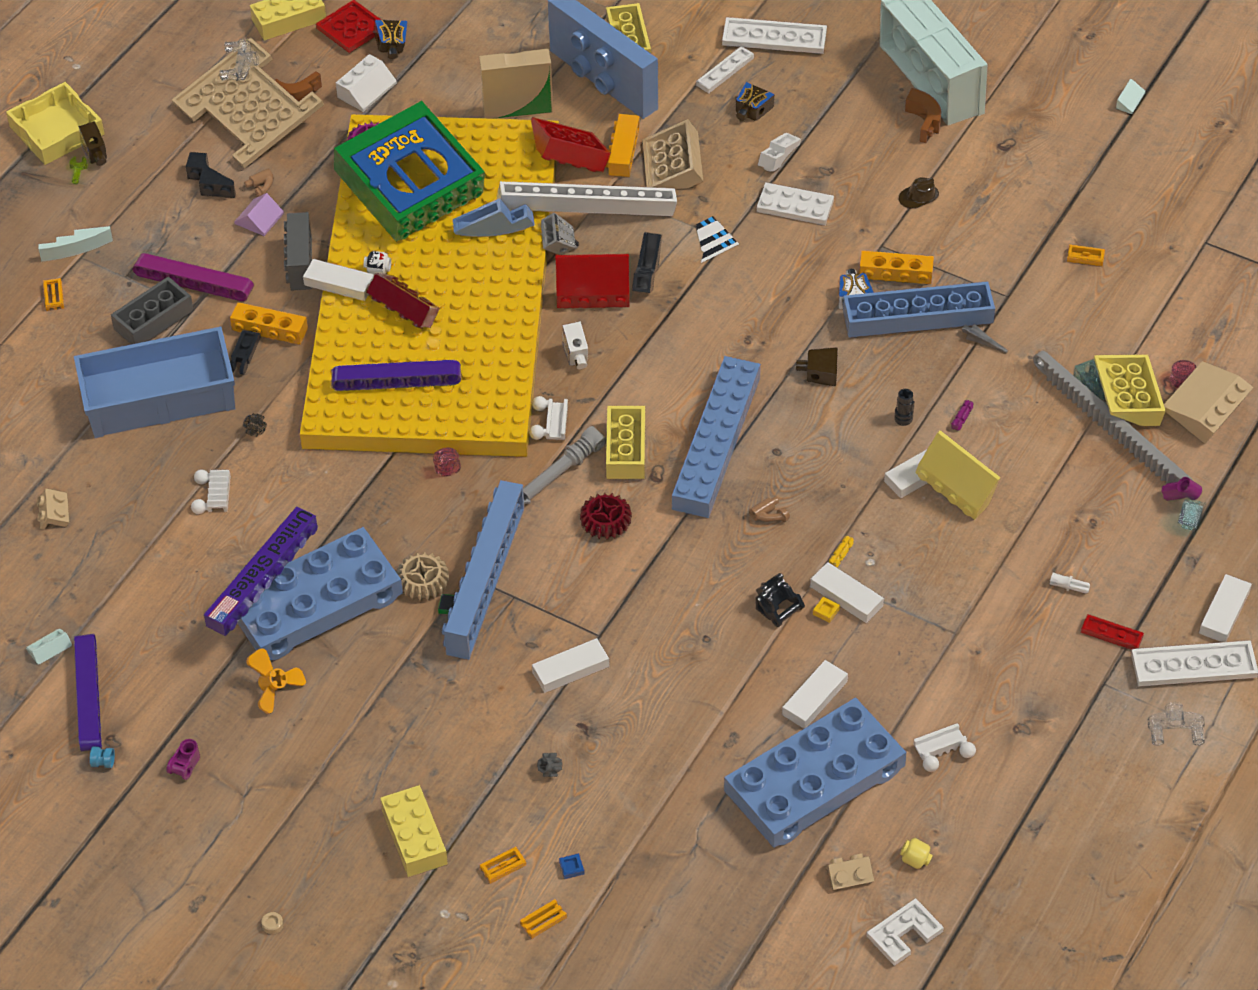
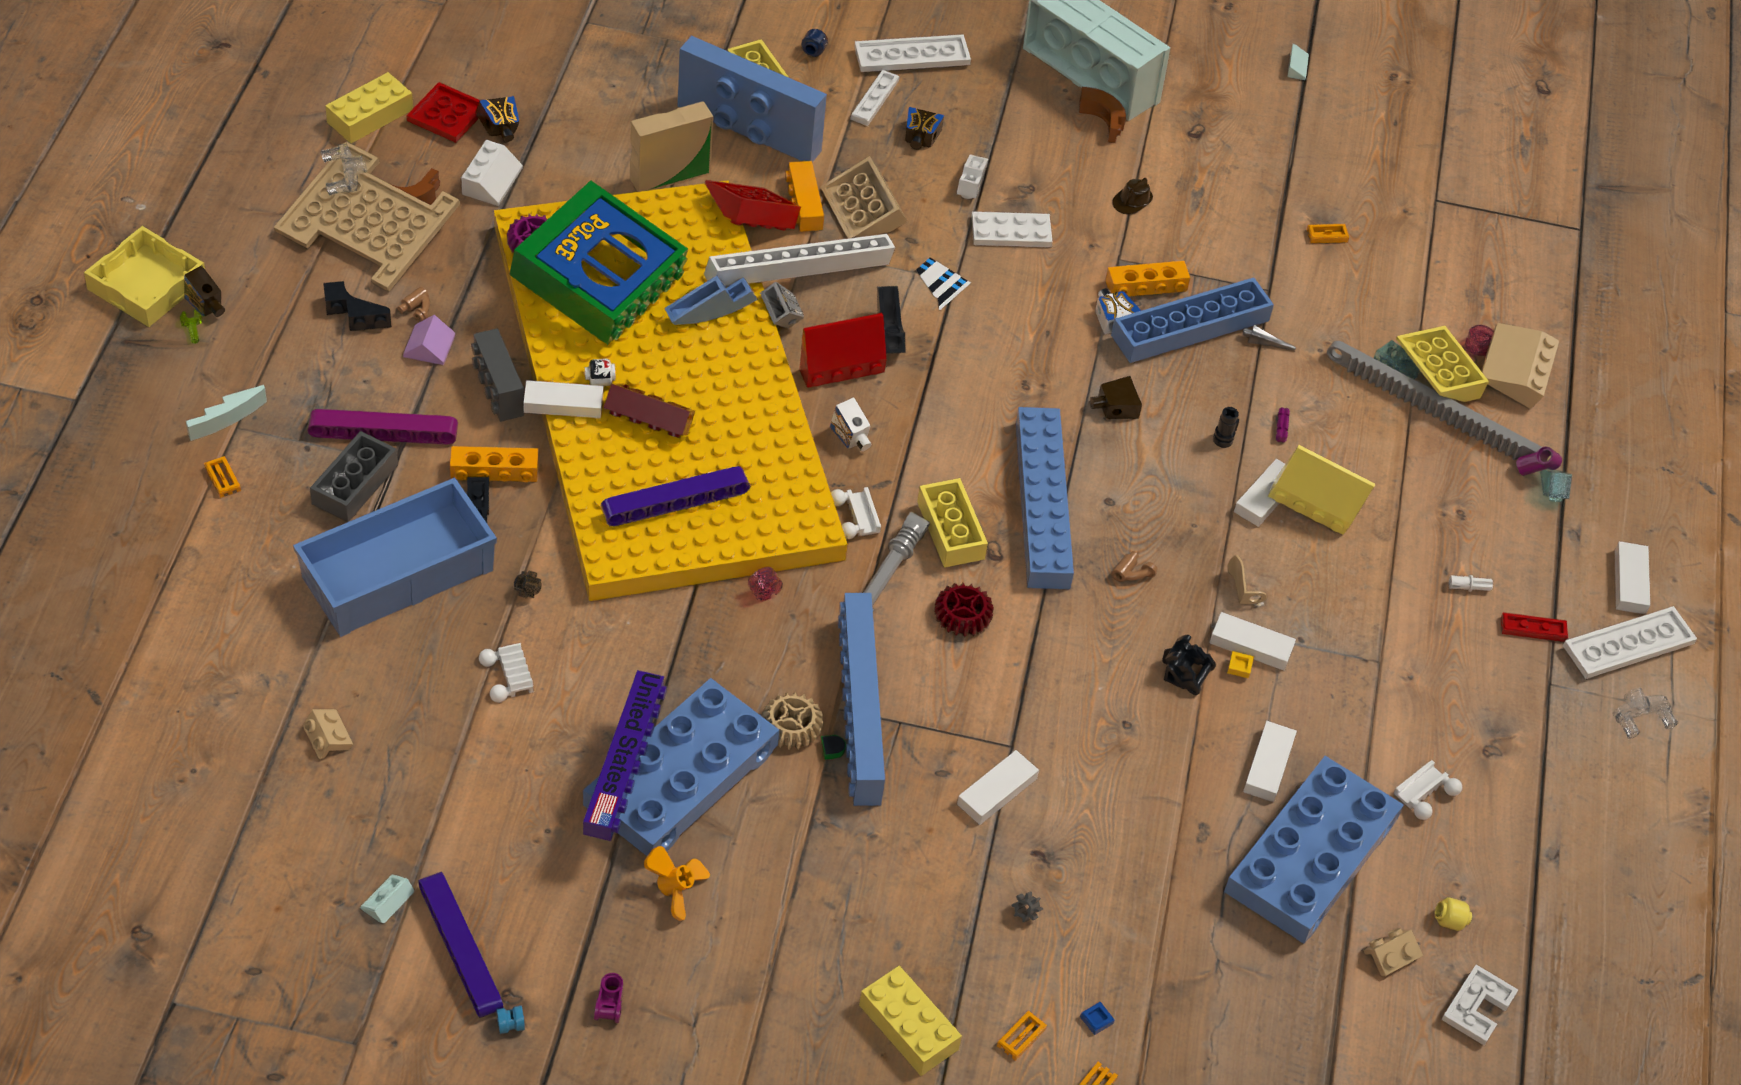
camera: 25 degrees left, 0 degrees up
(689, 13) = (814, 42): none -> dark blue head
(841, 551) = (1226, 596): yellow axle -> none
(857, 552) = (1236, 569): none -> tan piece

